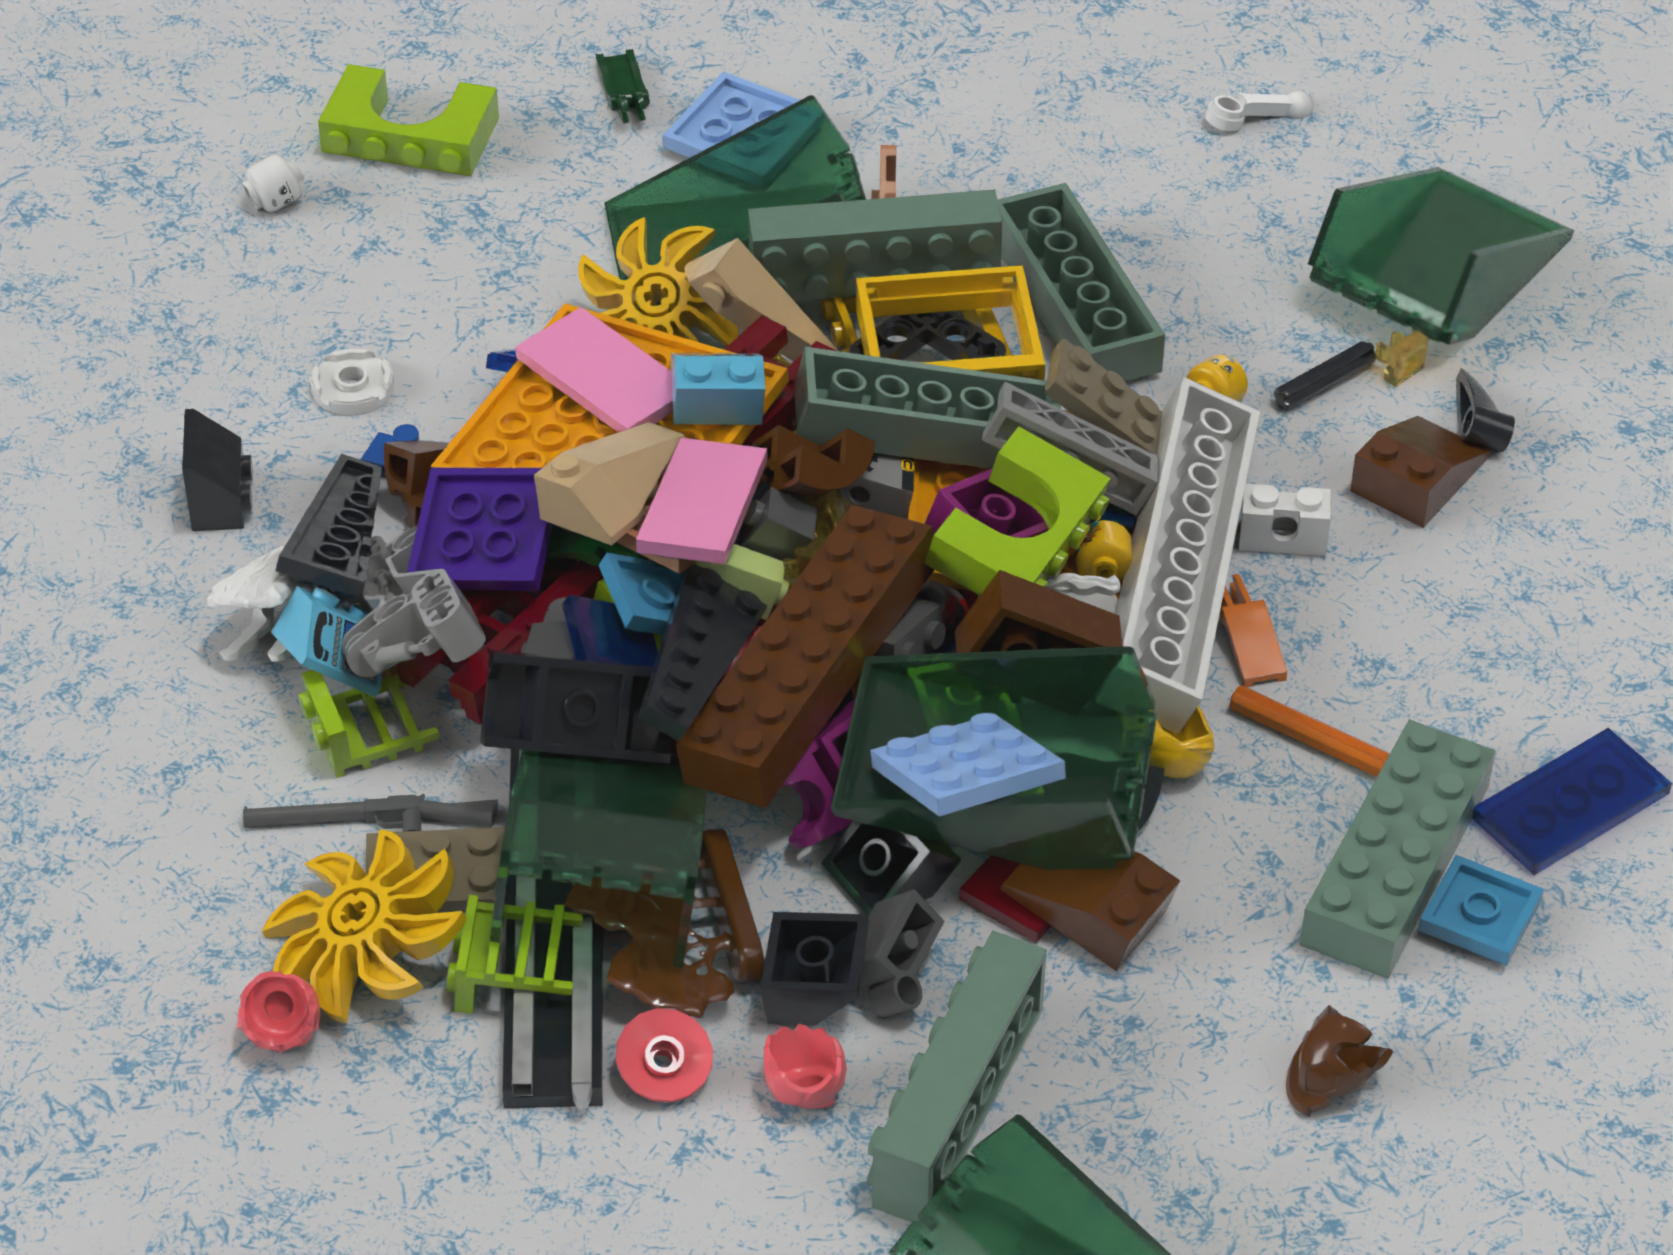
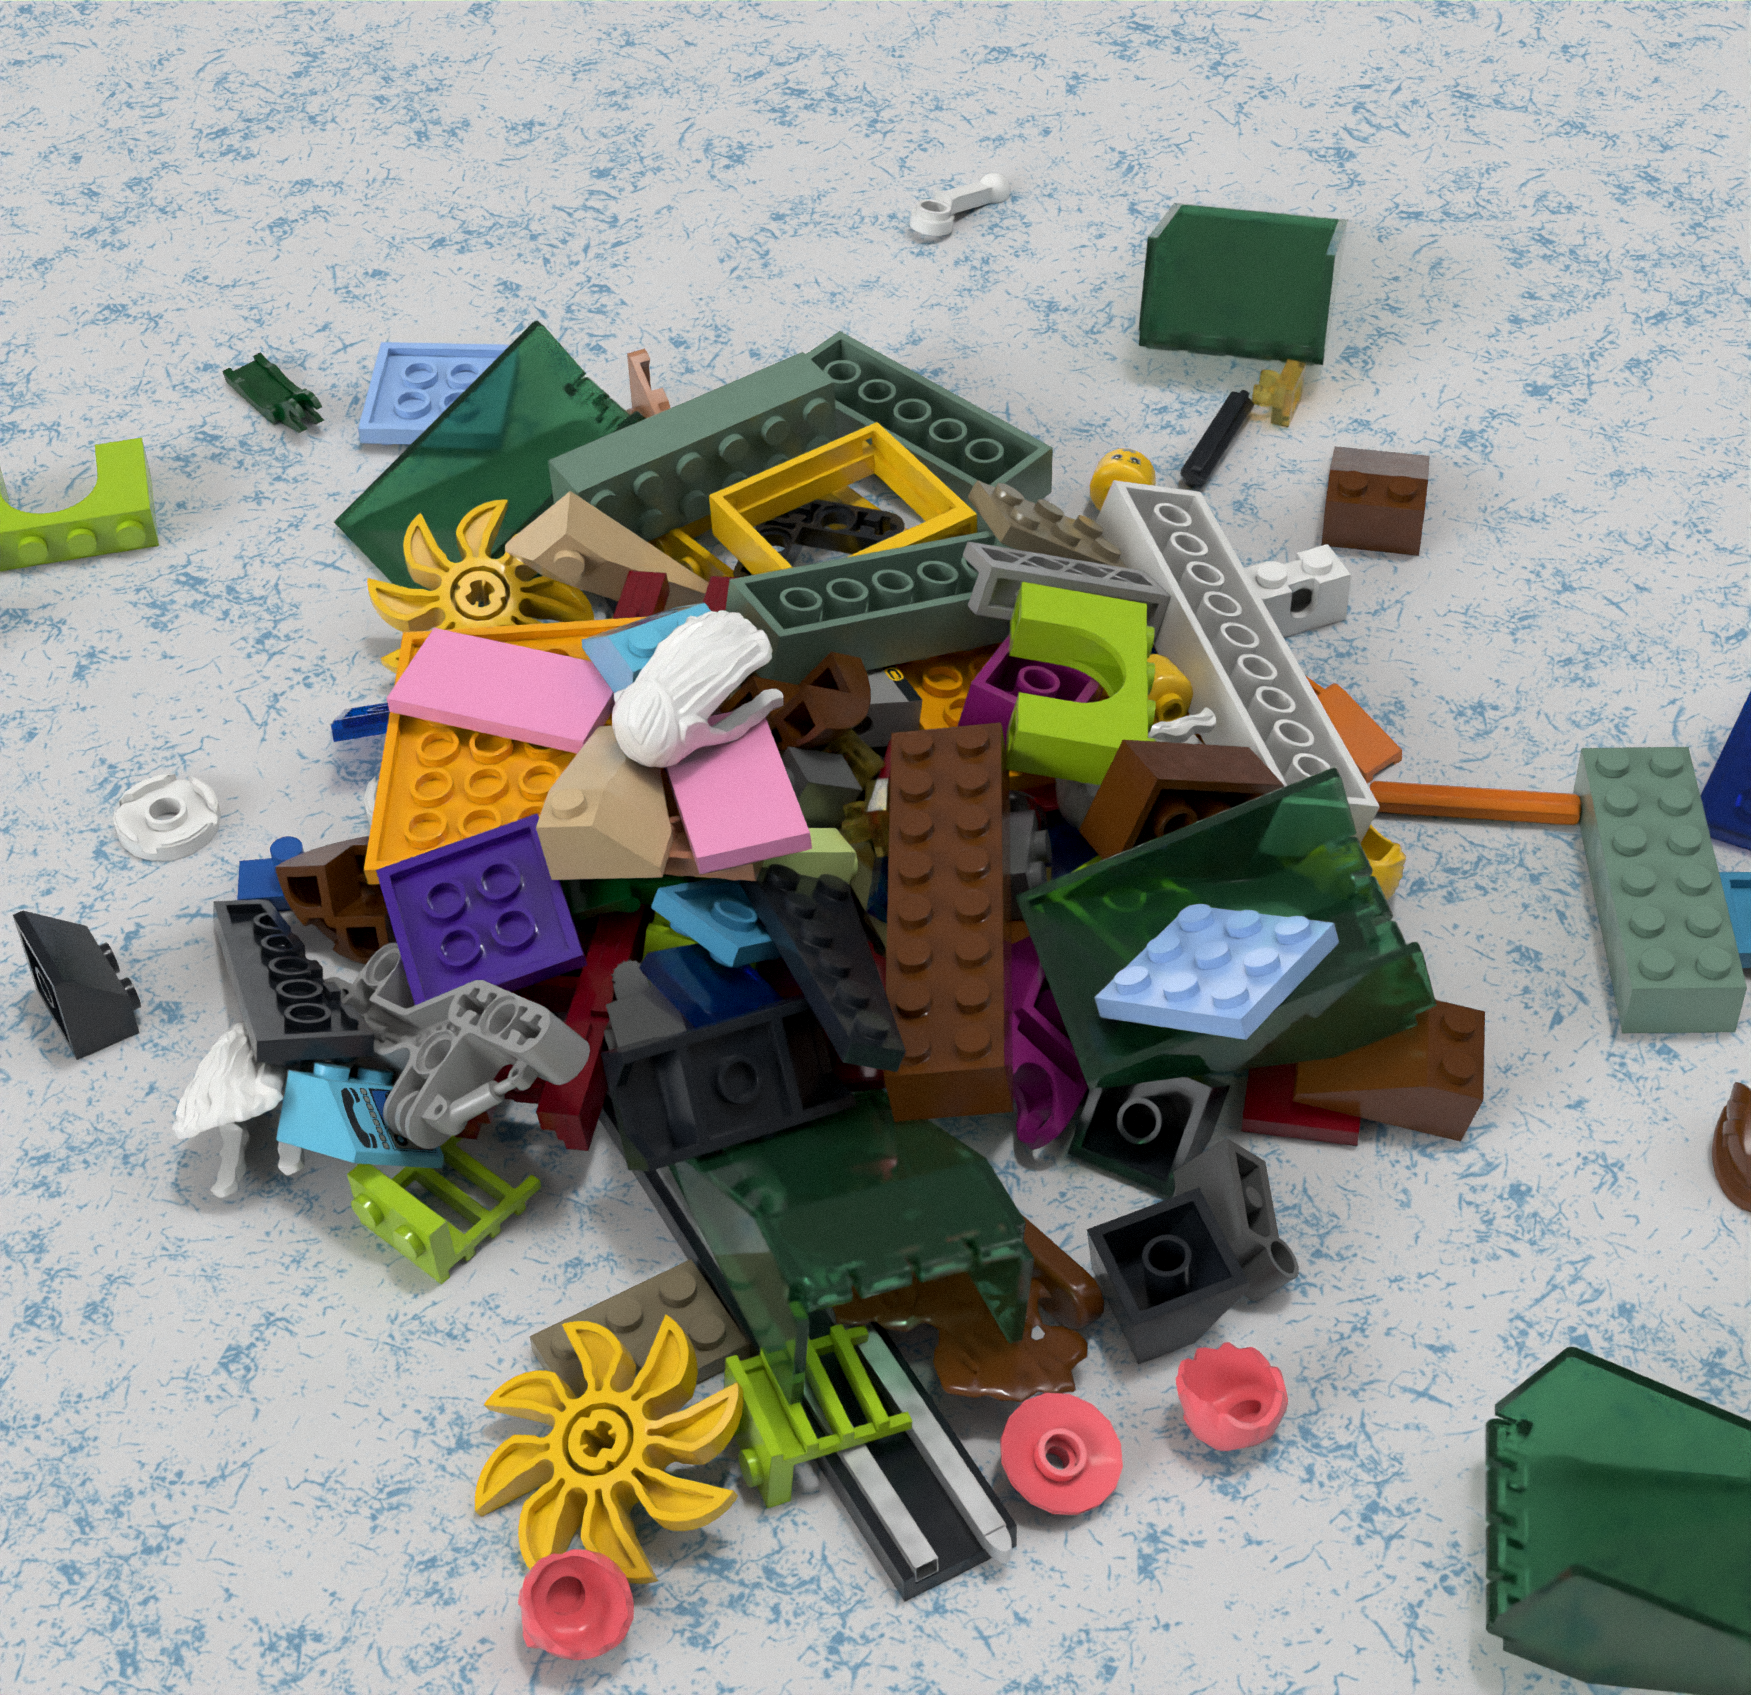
camera: 25 degrees left, 0 degrees up
(382, 811) = (541, 1291): dark grey piece -> none
(703, 409) = (685, 682): none -> white hair
(957, 1076) = (1414, 1339): sand green brick -> none
(1479, 417) = (1396, 425): black piece -> none

